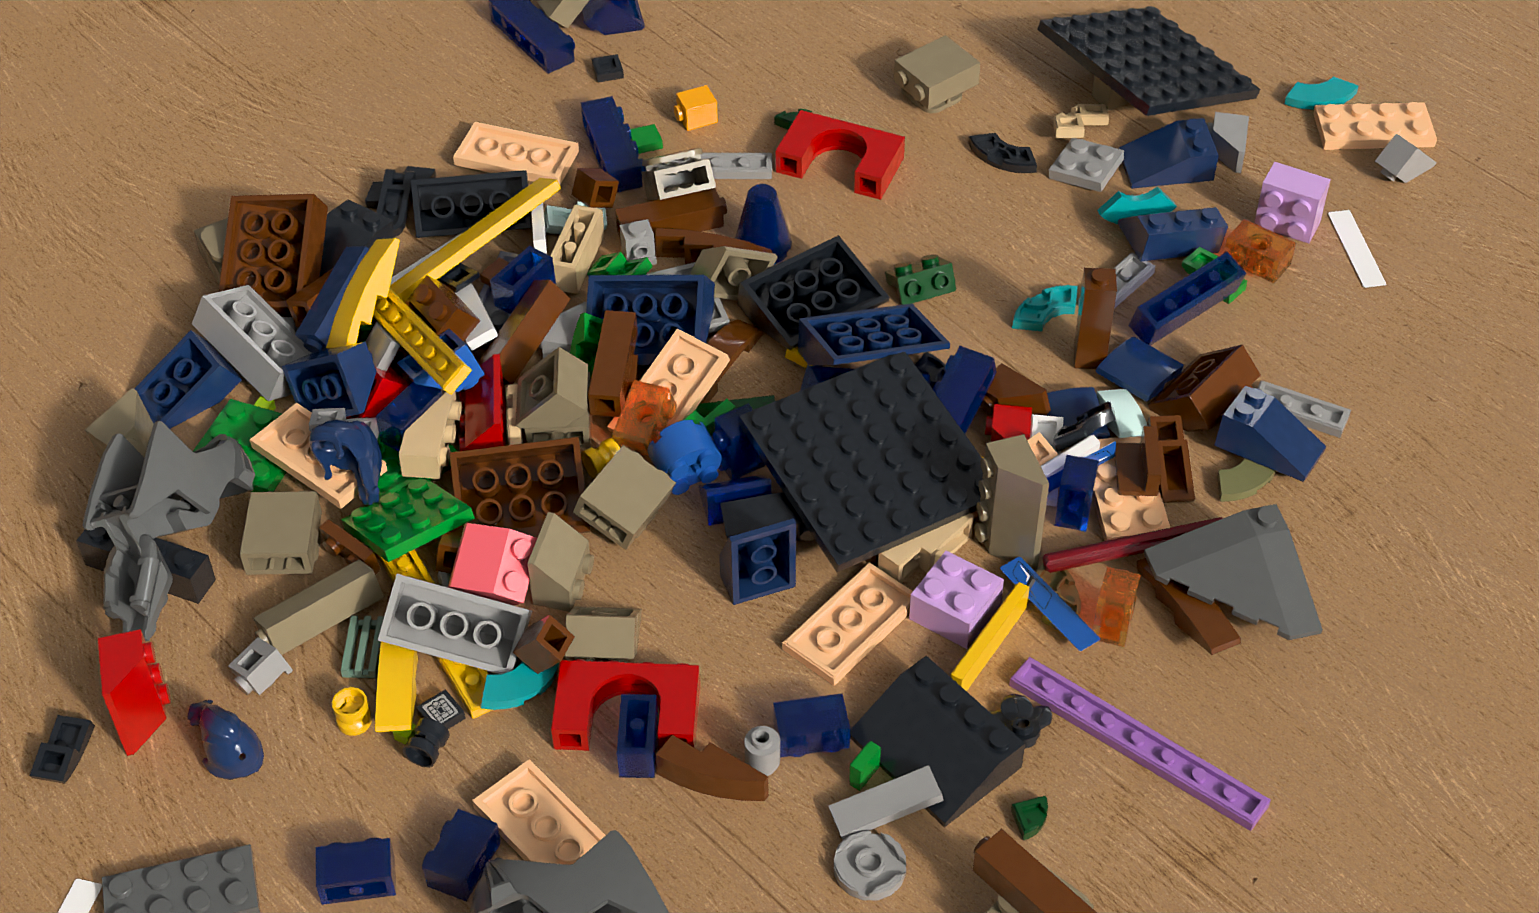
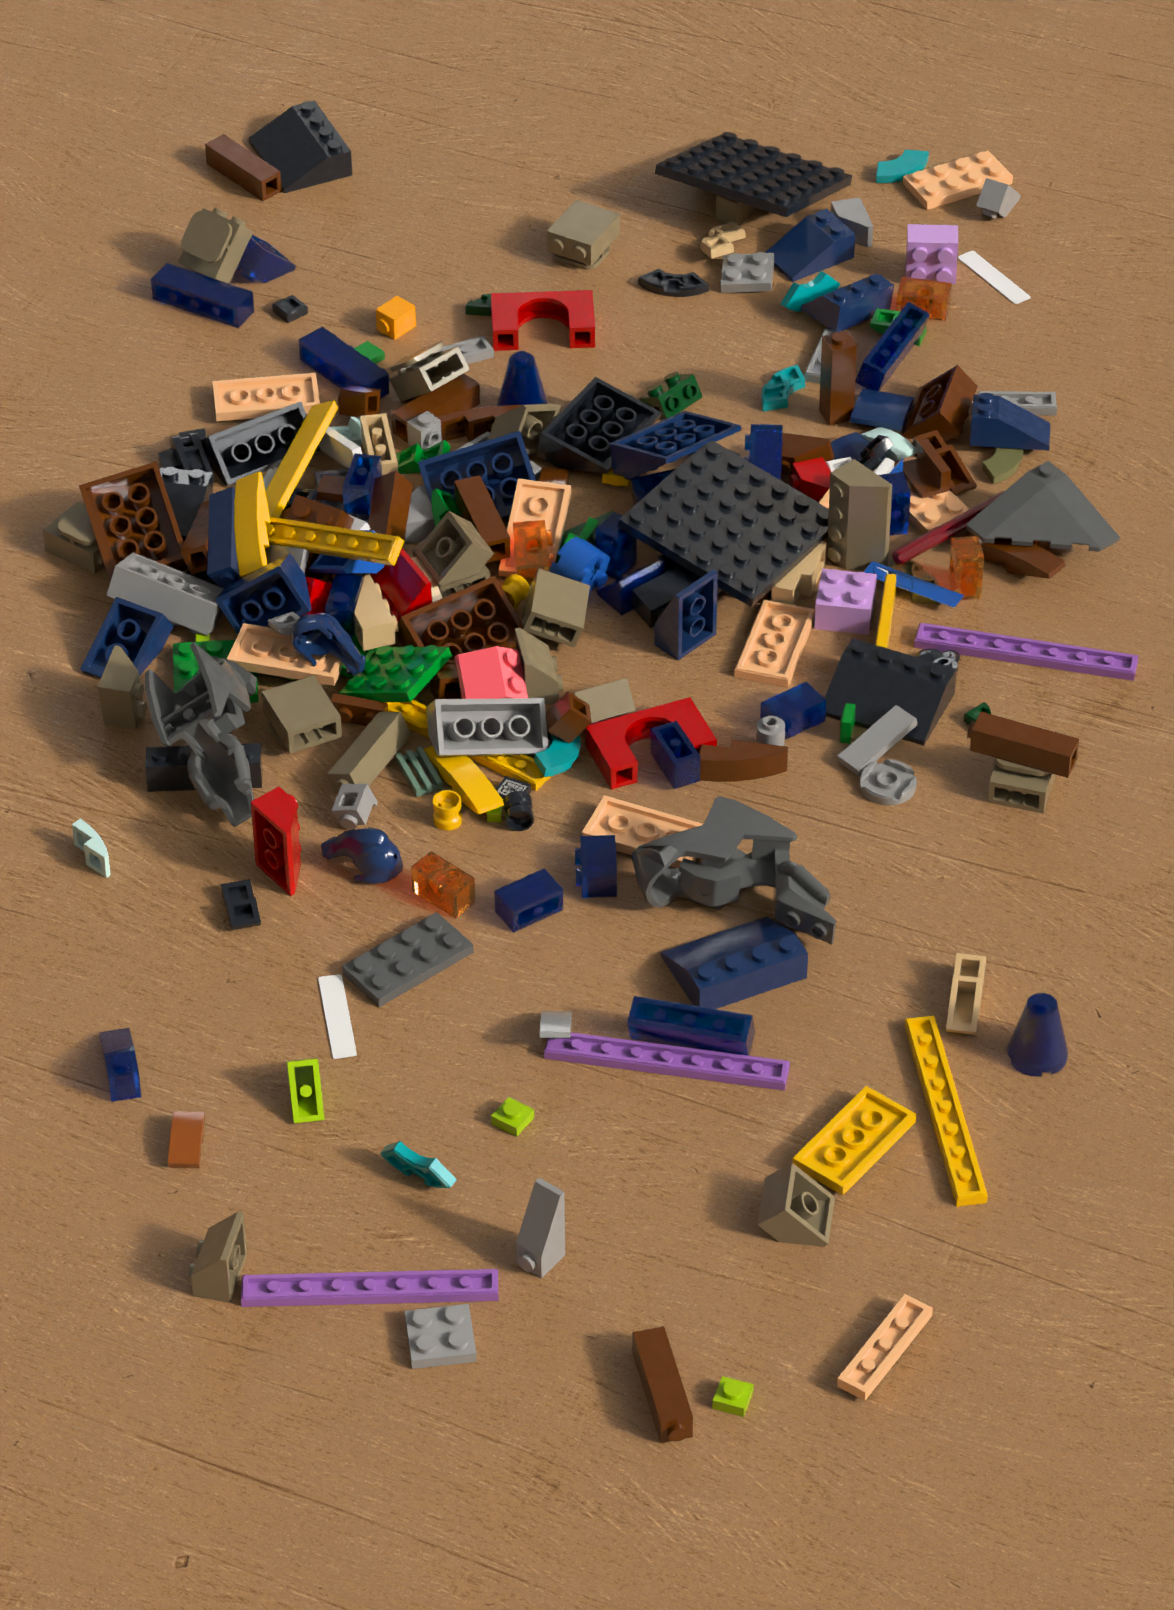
camera: 25 degrees left, 5 degrees down
(277, 811) = (443, 884): none -> clear orange brick

